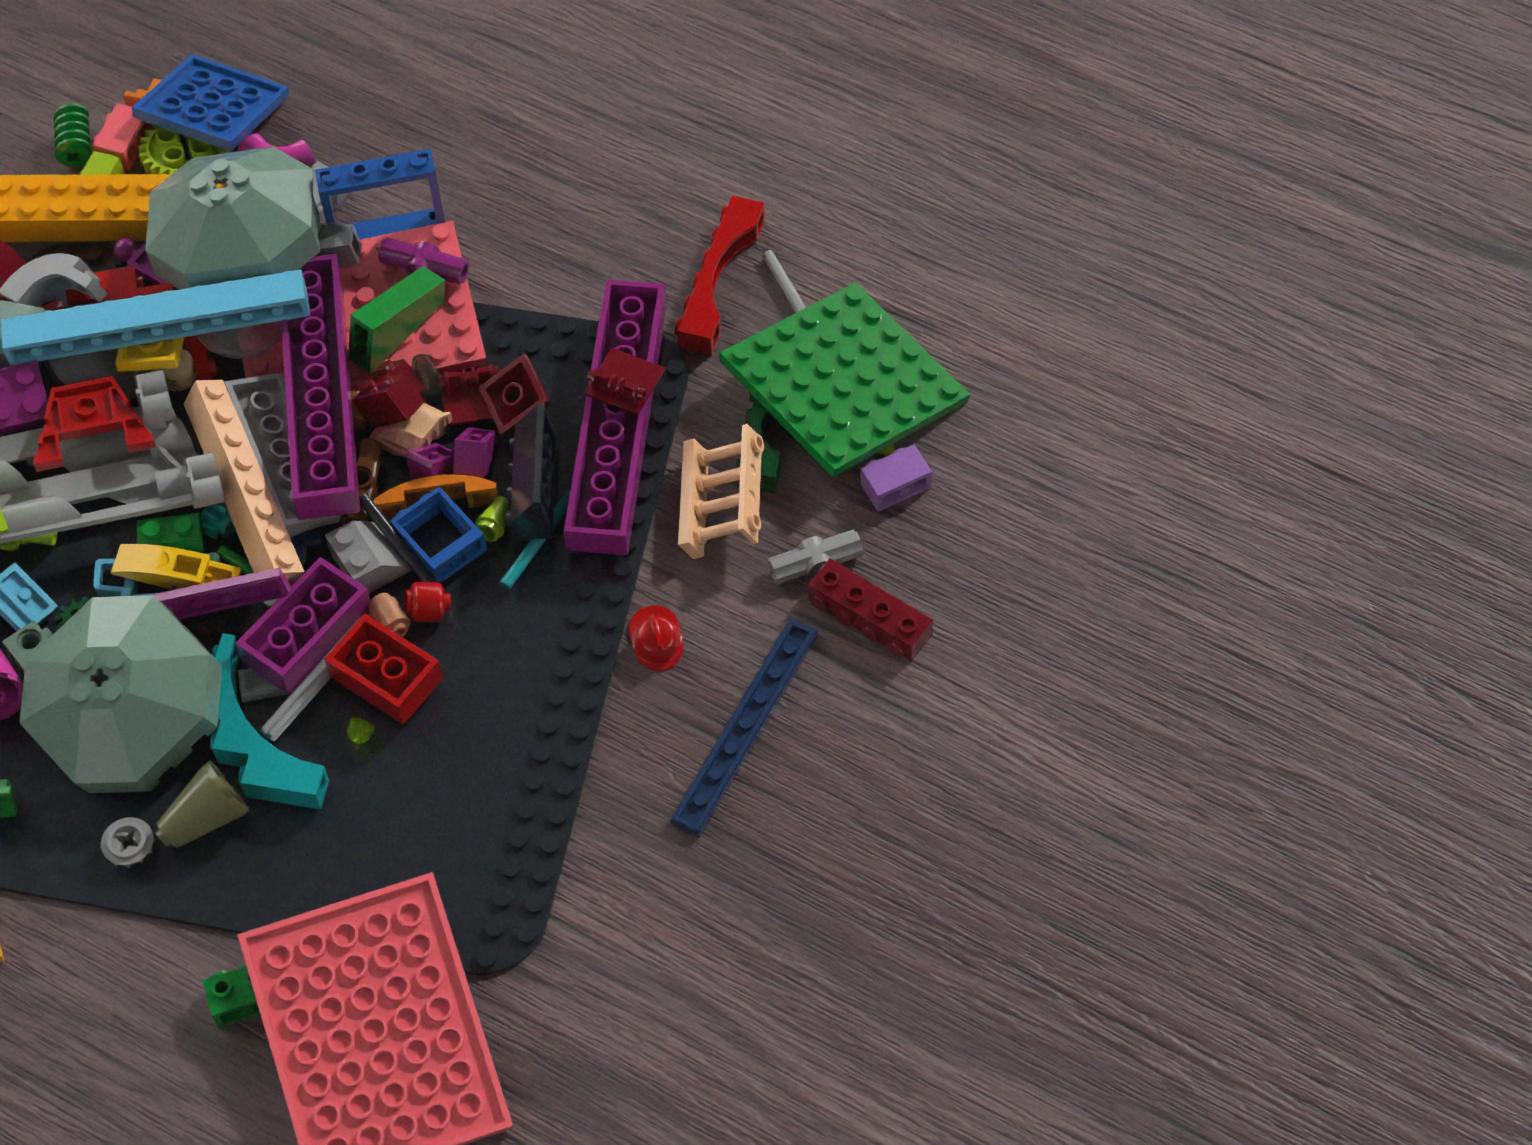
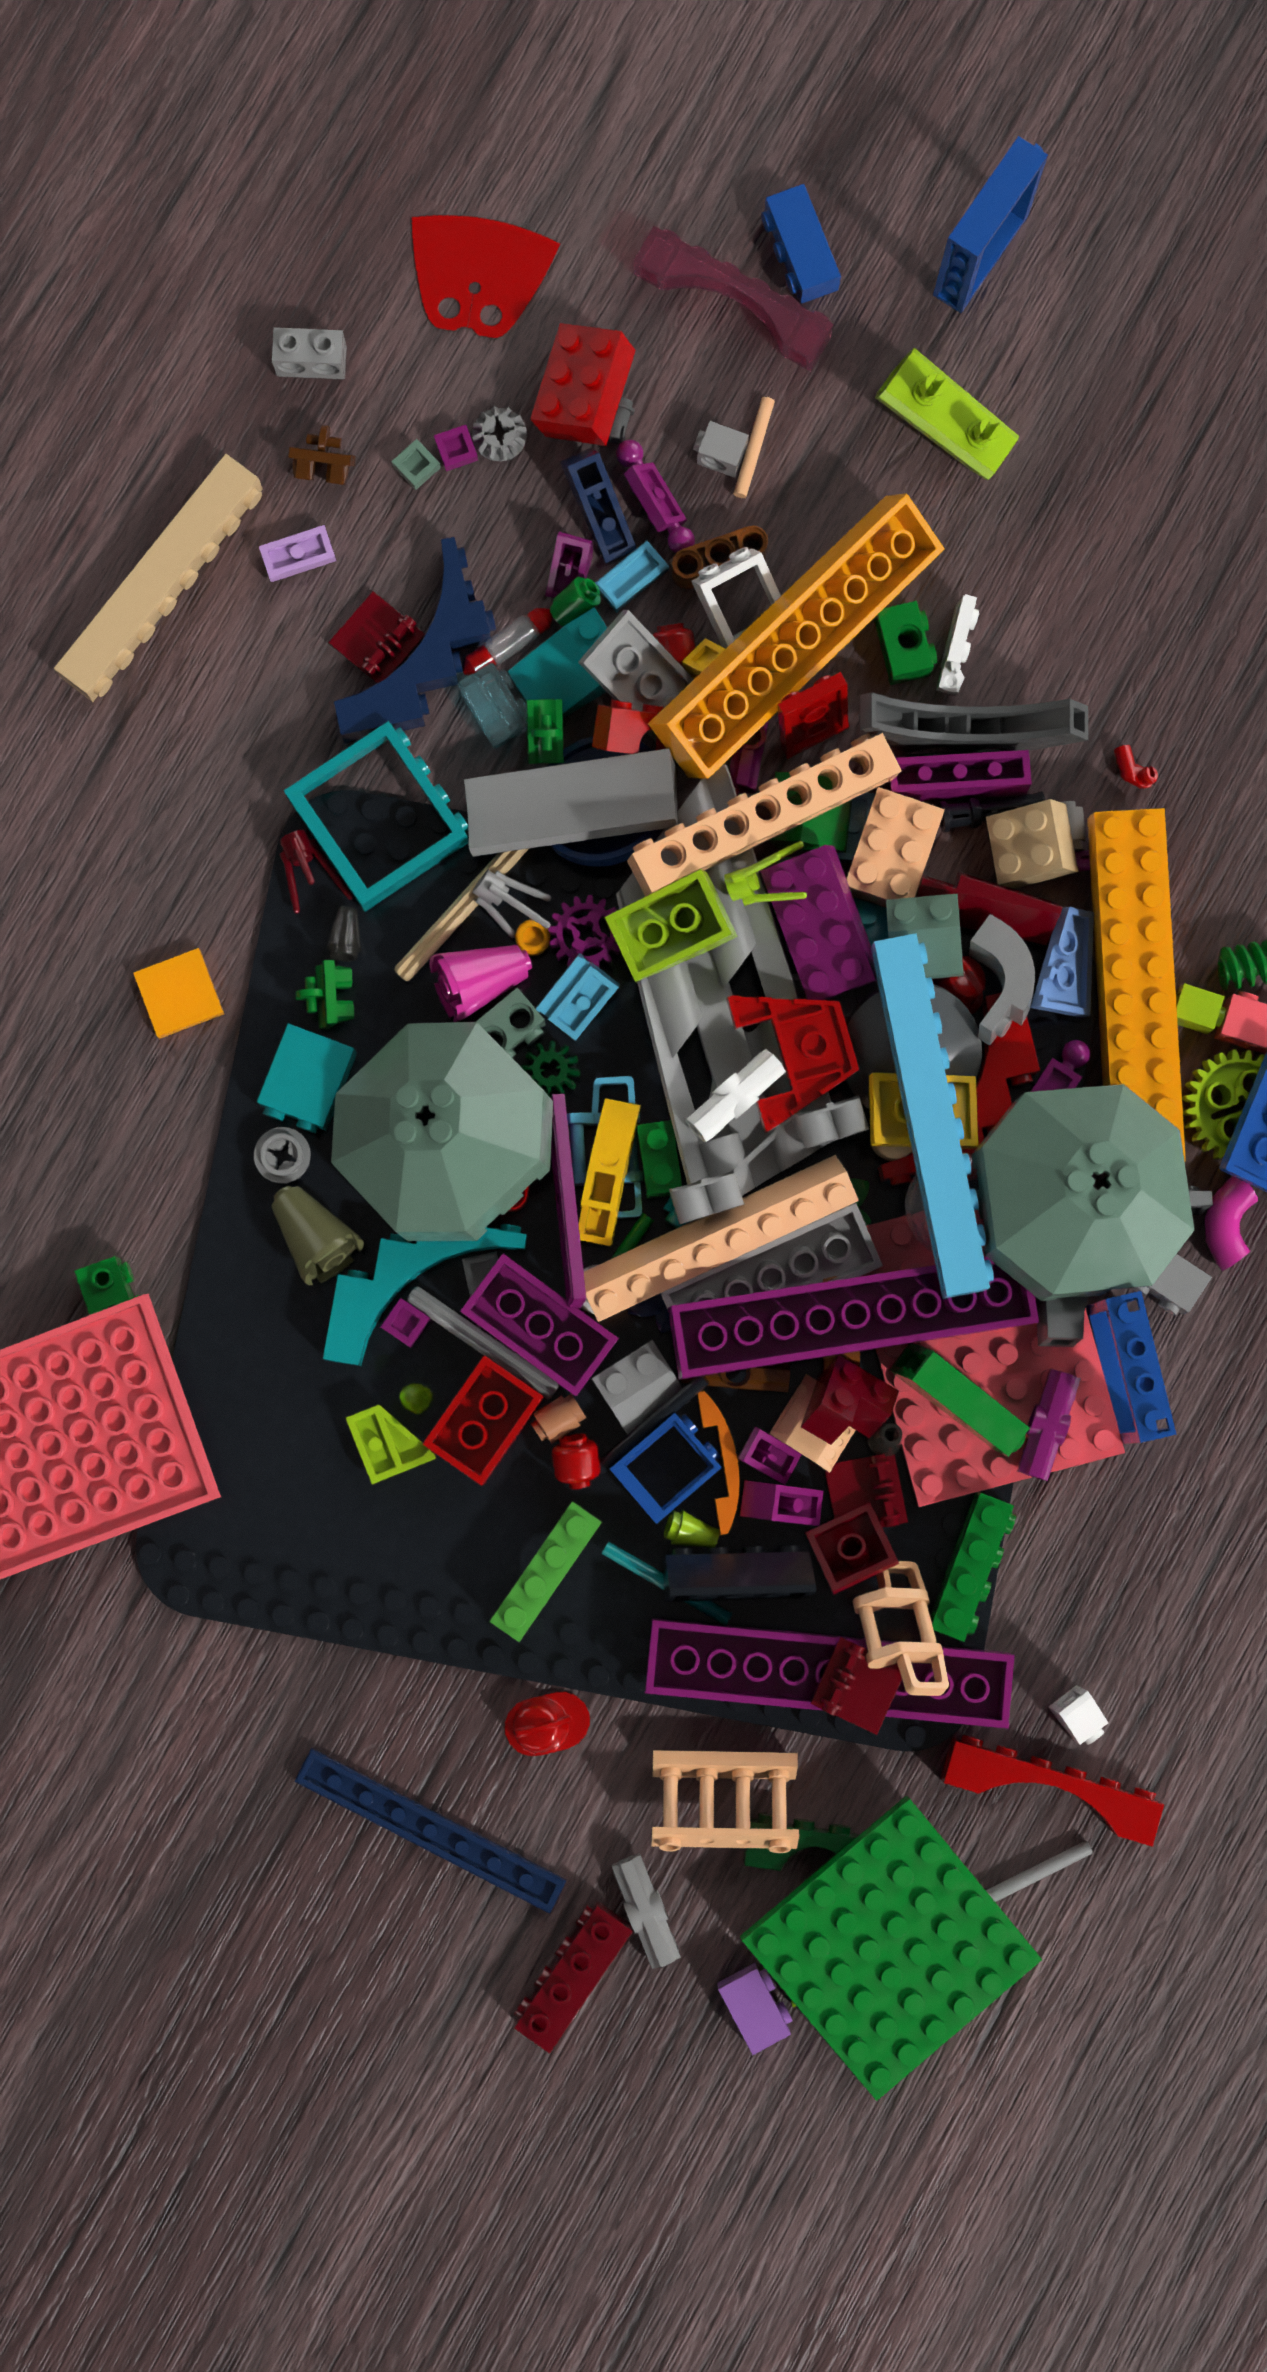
camera: 85 degrees right, 25 degrees up
(32, 249) = (1067, 967): none -> medium blue wing
(58, 818) = (306, 1078): none -> teal brick
(120, 462) = (735, 1095): none -> white piece
(292, 737) = (405, 1322): none -> magenta plate
(399, 753) = (386, 1444): none -> lime wing
(536, 320) = (970, 1566): none -> green brick
(544, 636) = (545, 1571): none -> bright green arch
(553, 362) = (903, 1652): none -> light nougat bar
(659, 252) = (1079, 1715): none -> white slope

